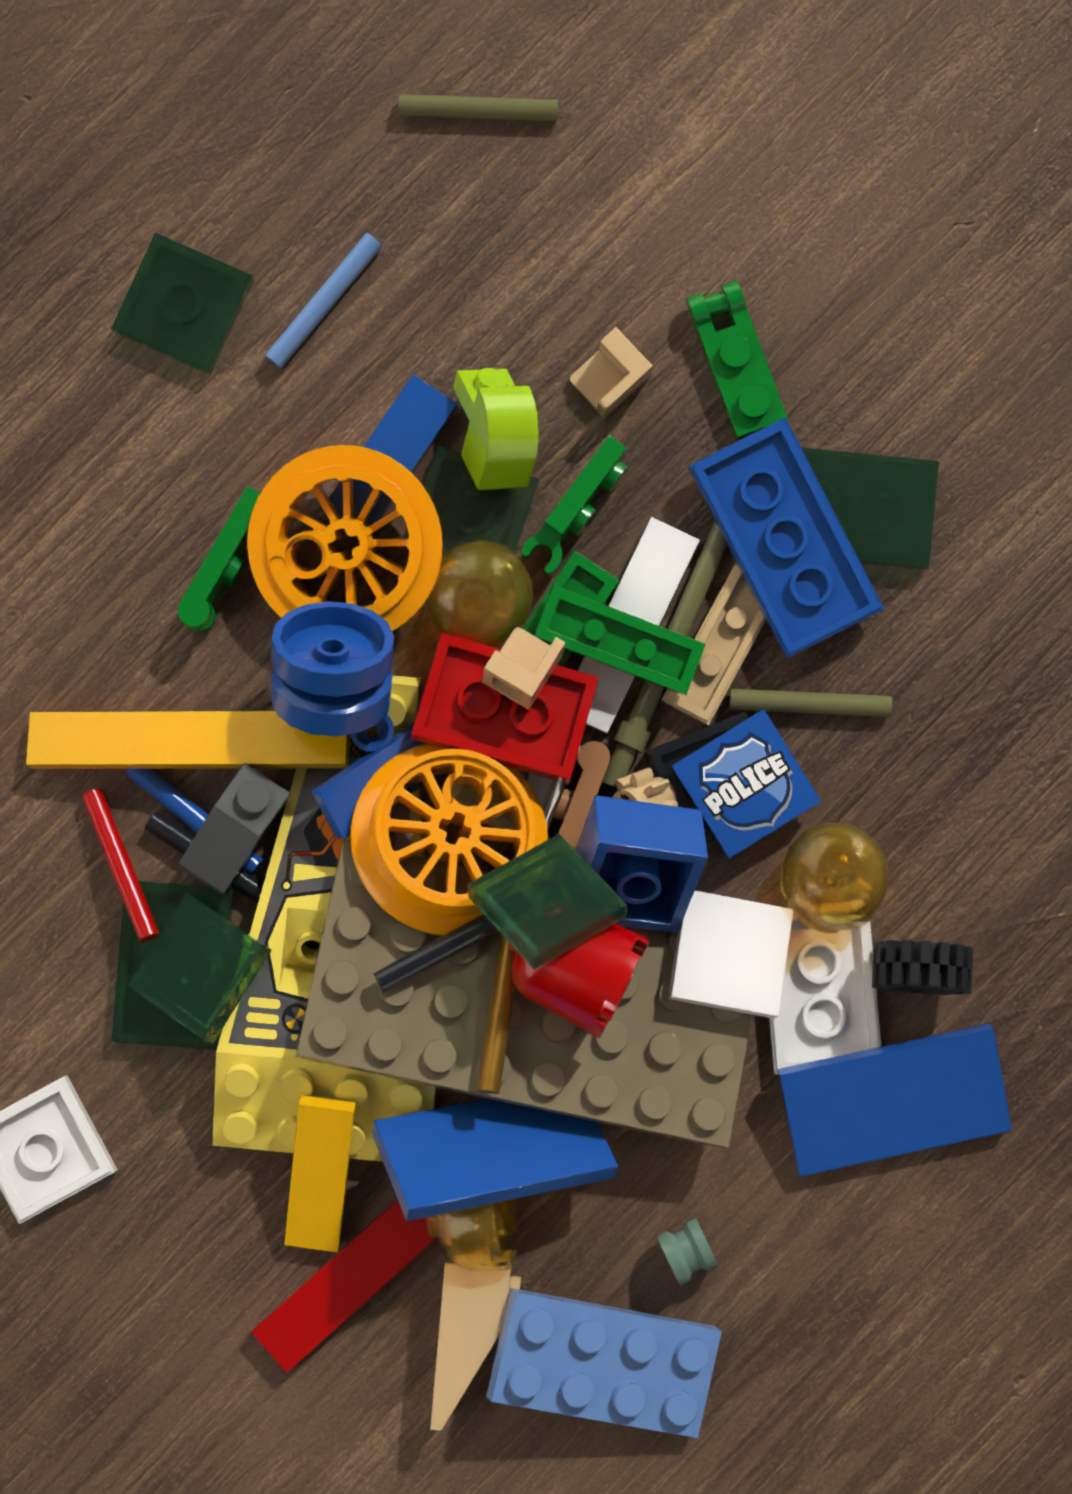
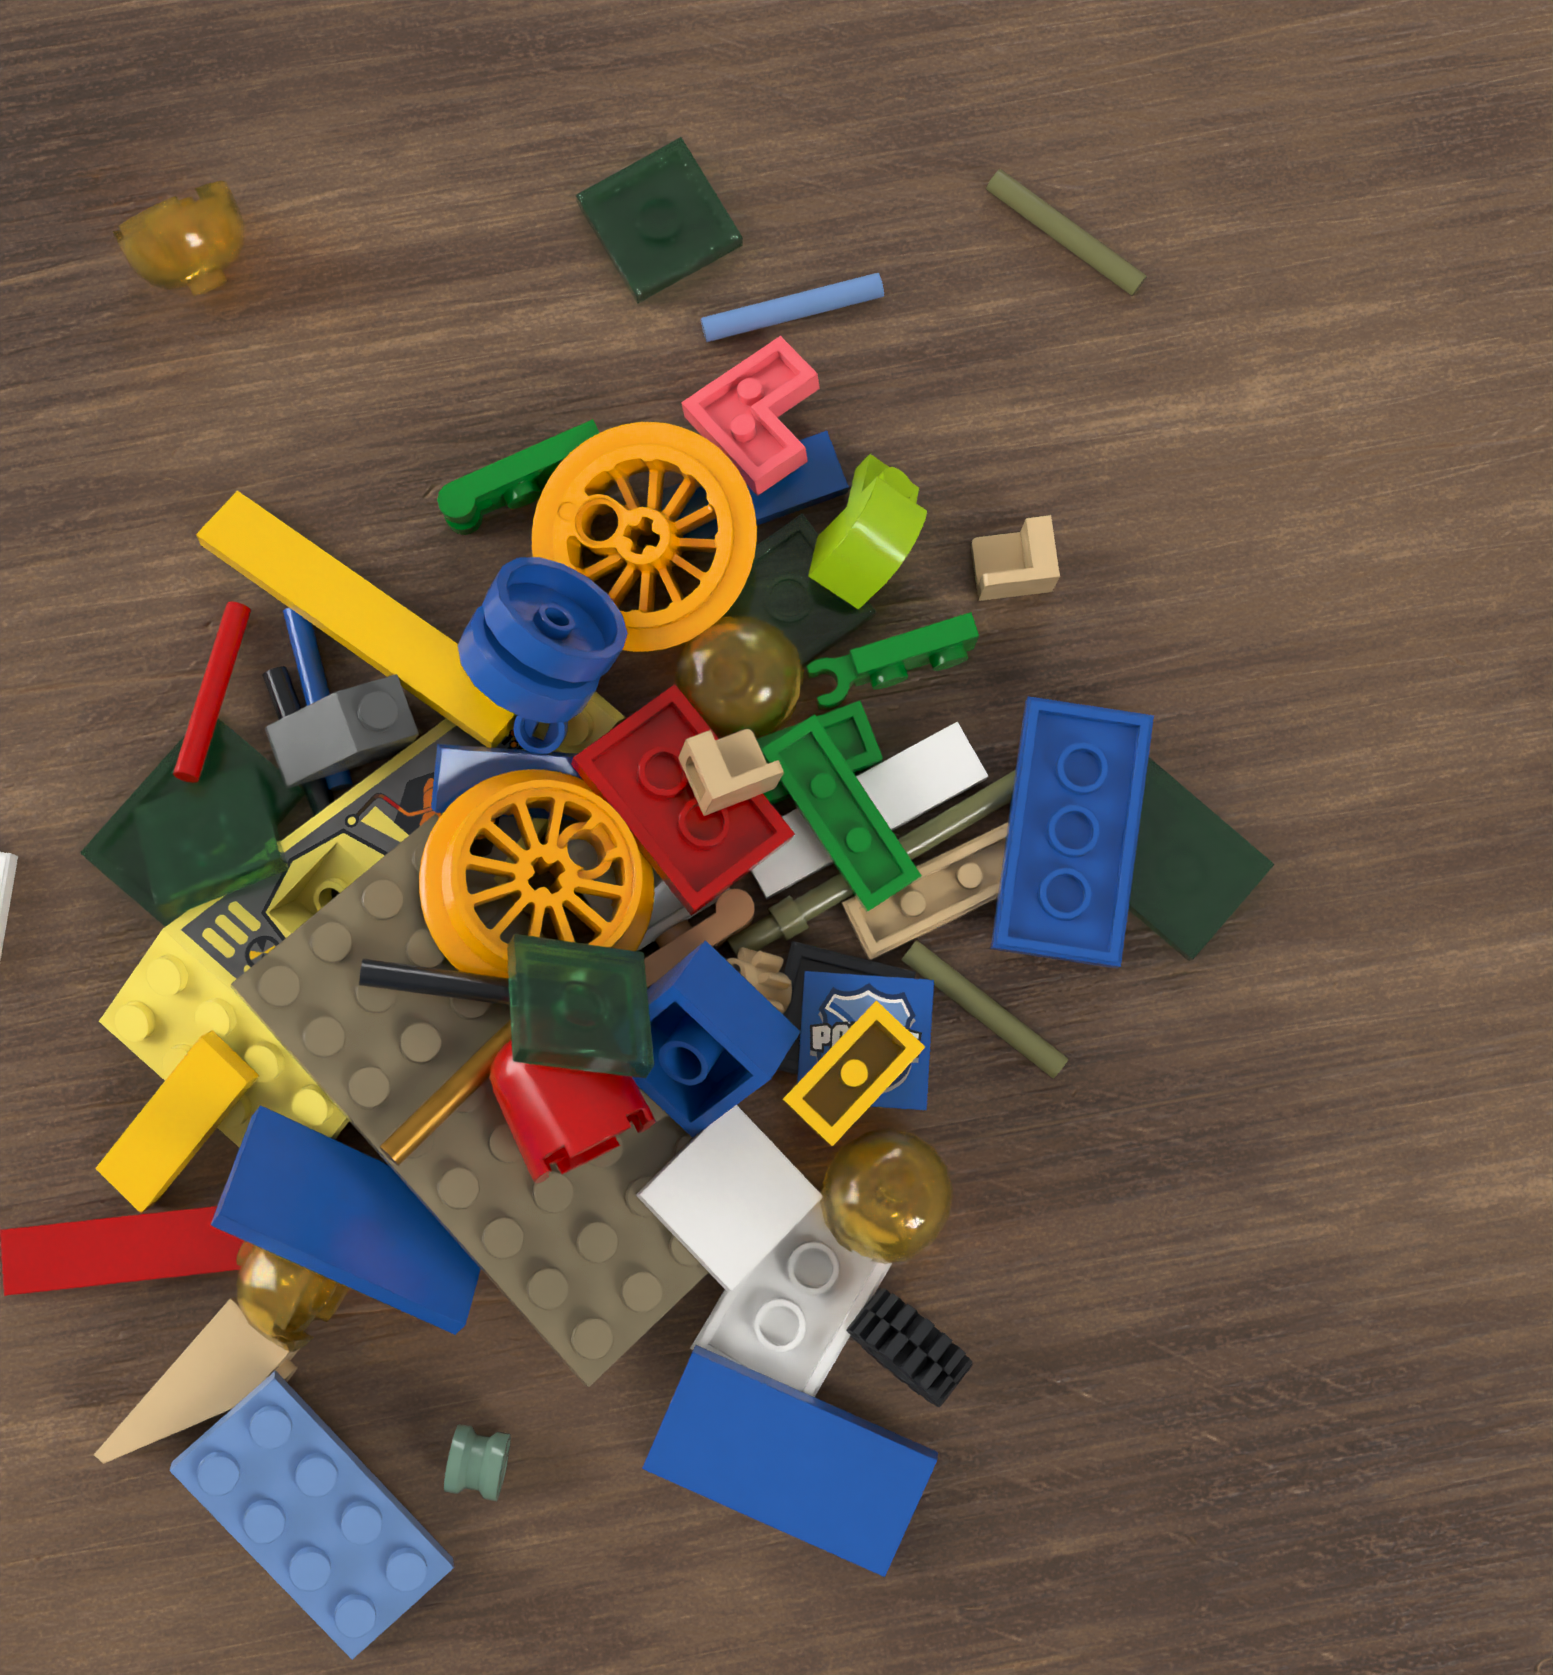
camera: 30 degrees right, 5 degrees down
(343, 402) = (743, 411): none -> coral plate
(736, 361) = (1144, 632): green plate -> none
(757, 813) = (853, 1073): none -> yellow brick

